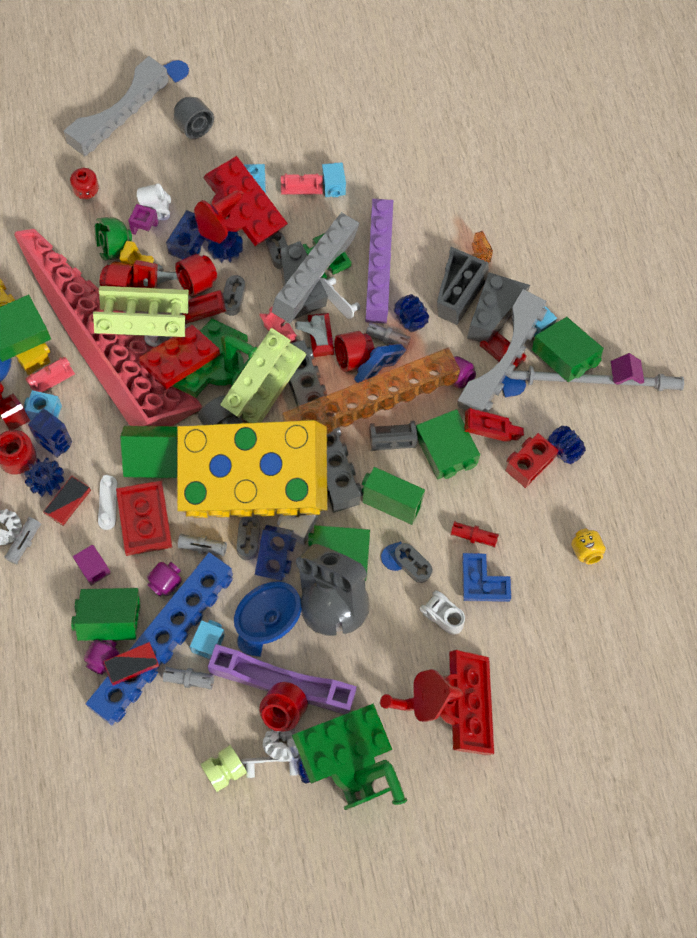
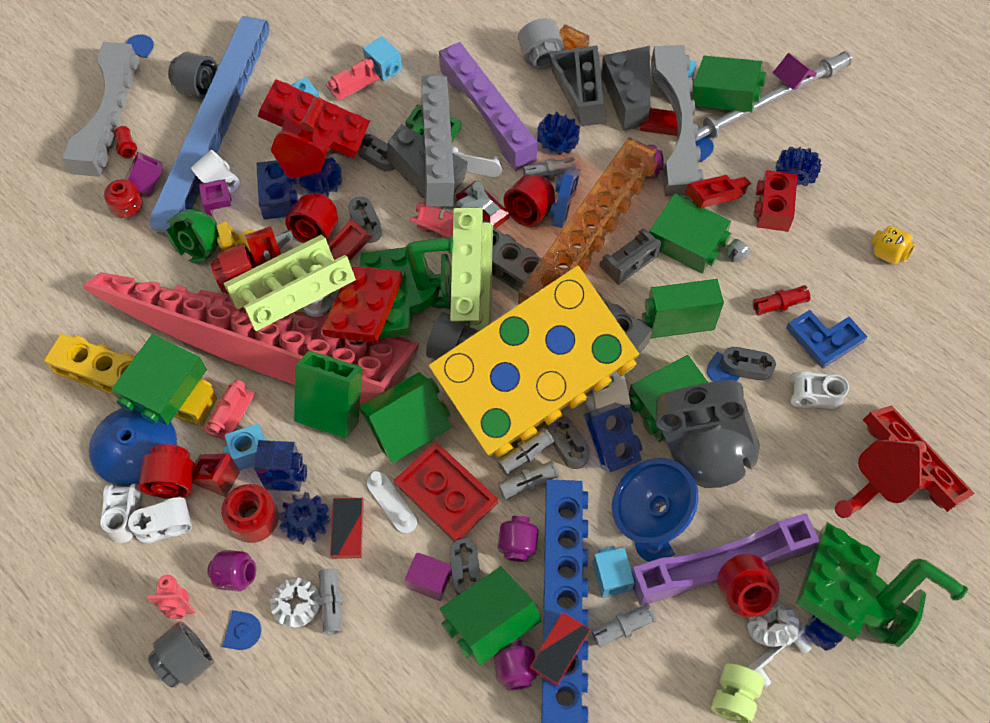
camera: 30 degrees left, 5 degrees down
(111, 172) = (144, 172): none -> magenta panel
(111, 403) = (327, 394): none -> green brick
(113, 145) = (126, 146): none -> red pin
(116, 569) = (457, 567): none -> dark grey beam
(187, 155) = (212, 119): none -> medium blue beam
(198, 525) = (509, 462): none -> light grey pin
(454, 233) = (538, 40): none -> light grey piece
(472, 479) = (738, 250): none -> light grey hinge

